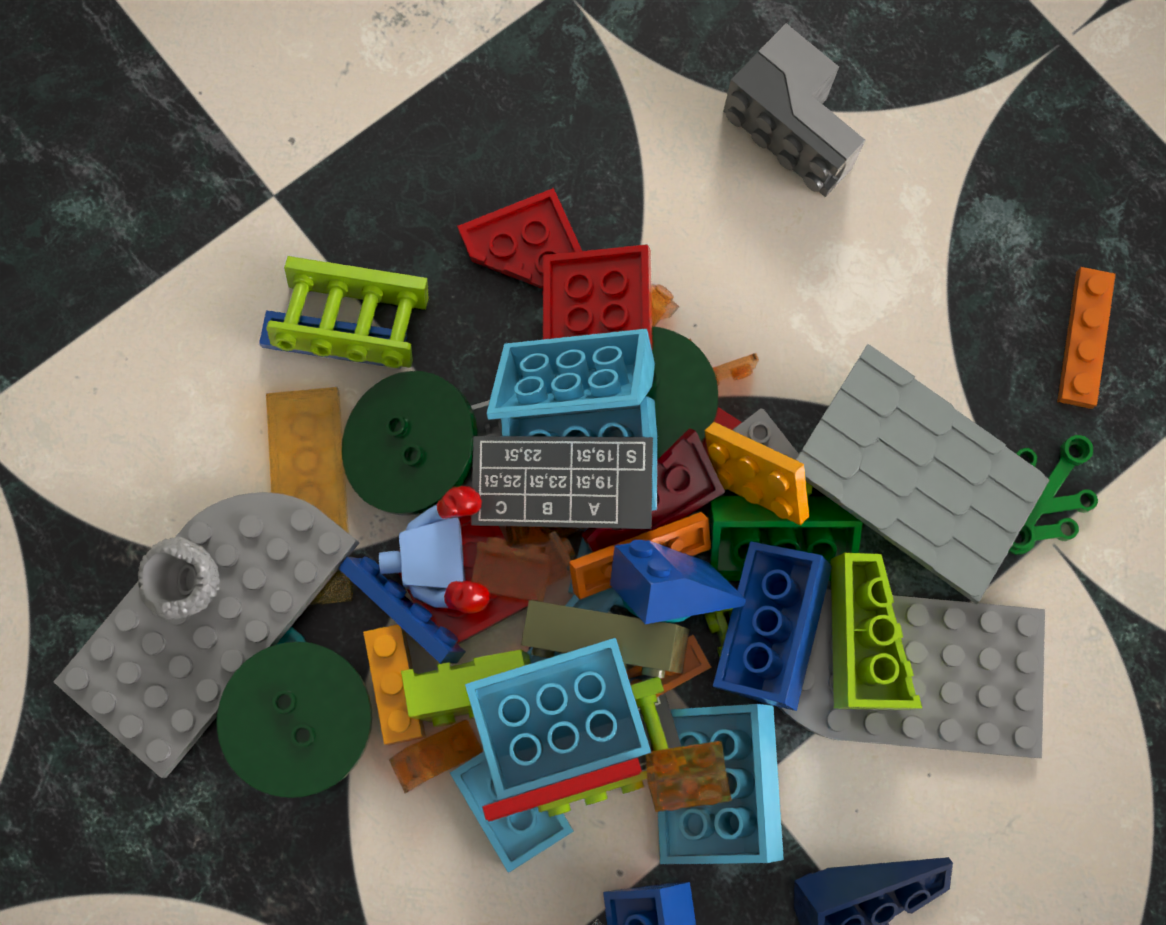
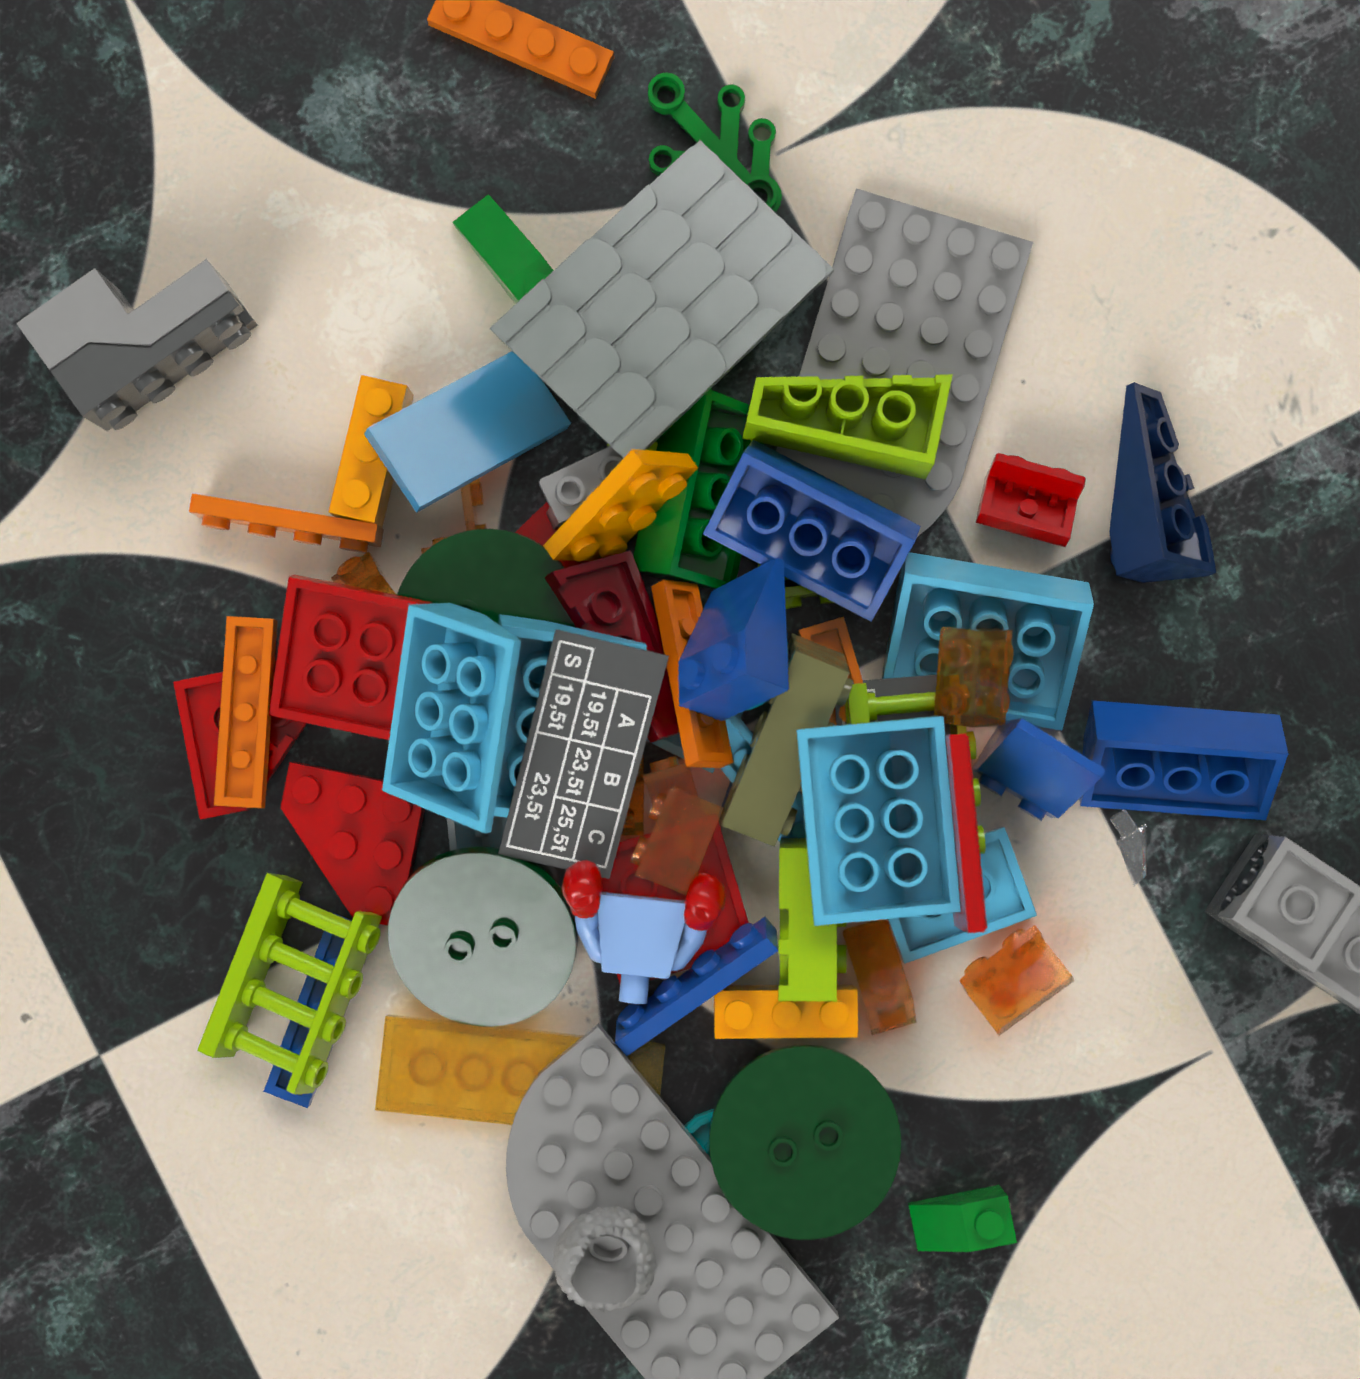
camera: 75 degrees left, 10 degrees up
(253, 863) = (963, 1221): none -> green slope
(454, 865) = (1015, 979): none -> clear orange bracket
(468, 336) = (354, 833): none -> red plate
(538, 238) = (245, 712): none -> orange plate
(624, 844) = (1035, 769): none -> blue slope
(687, 256) = (306, 526): none -> orange plate
(753, 291) = (362, 478): none -> light orange brick
(785, 352) = (466, 430): none -> dark azure tile
(838, 798) = (1030, 499): none -> red bracket
(931, 351) = (502, 248): none -> green slope

